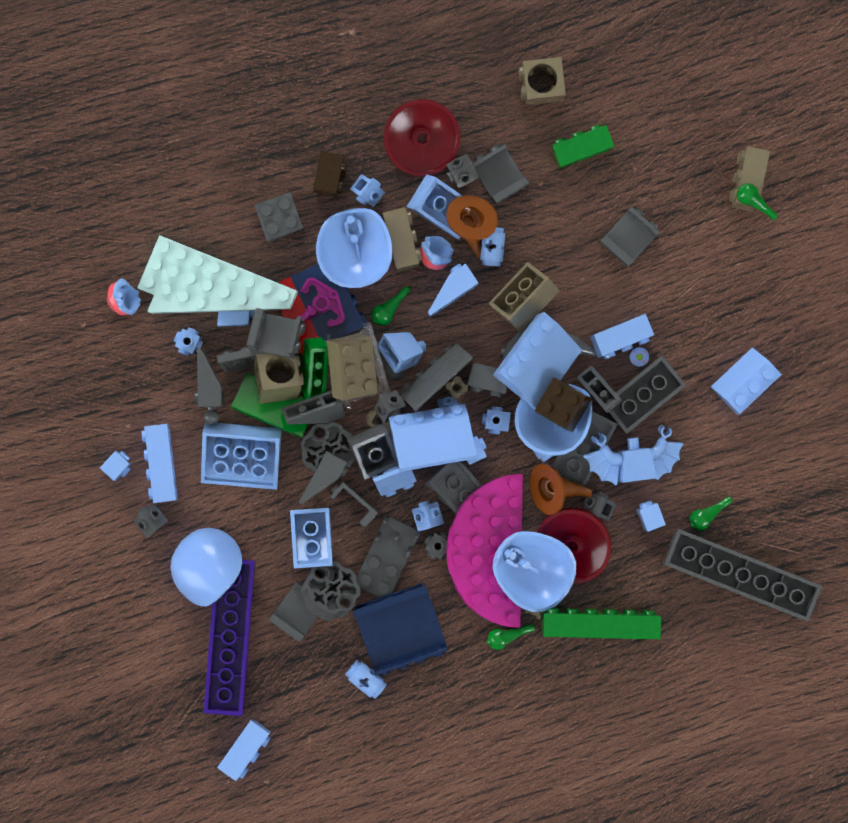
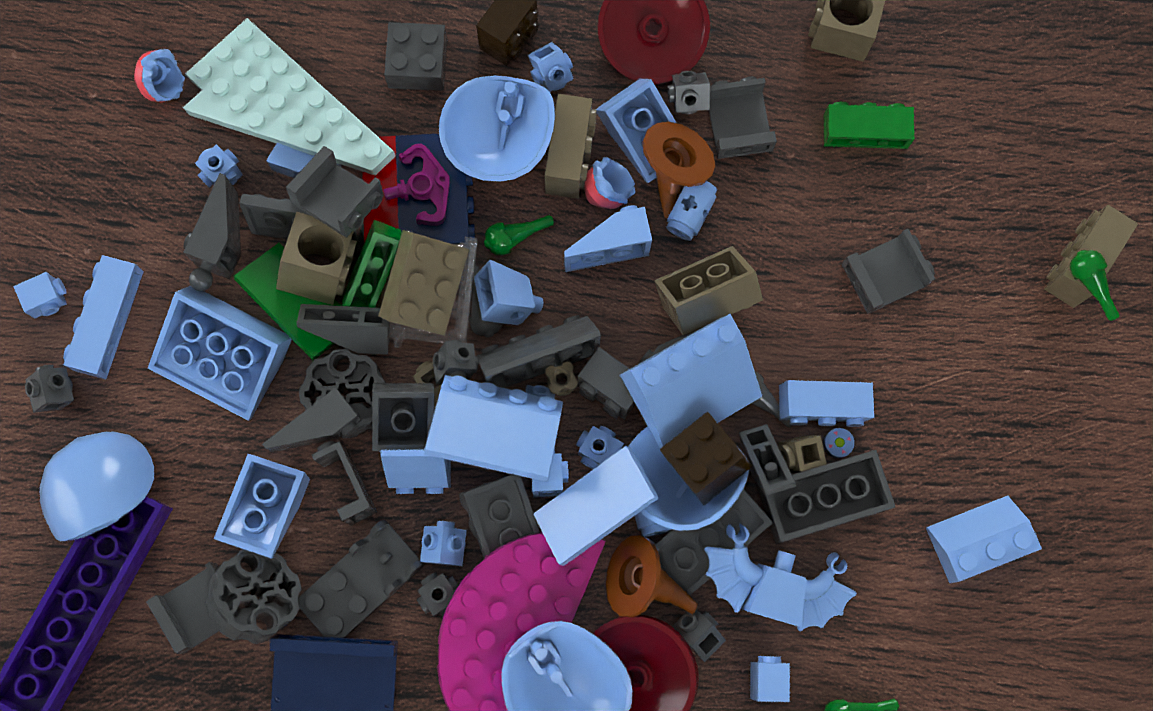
camera: 25 degrees right, 10 degrees down
(509, 458) = (595, 505): none -> light blue tile
(618, 374) = (803, 452): none -> dark tan brick

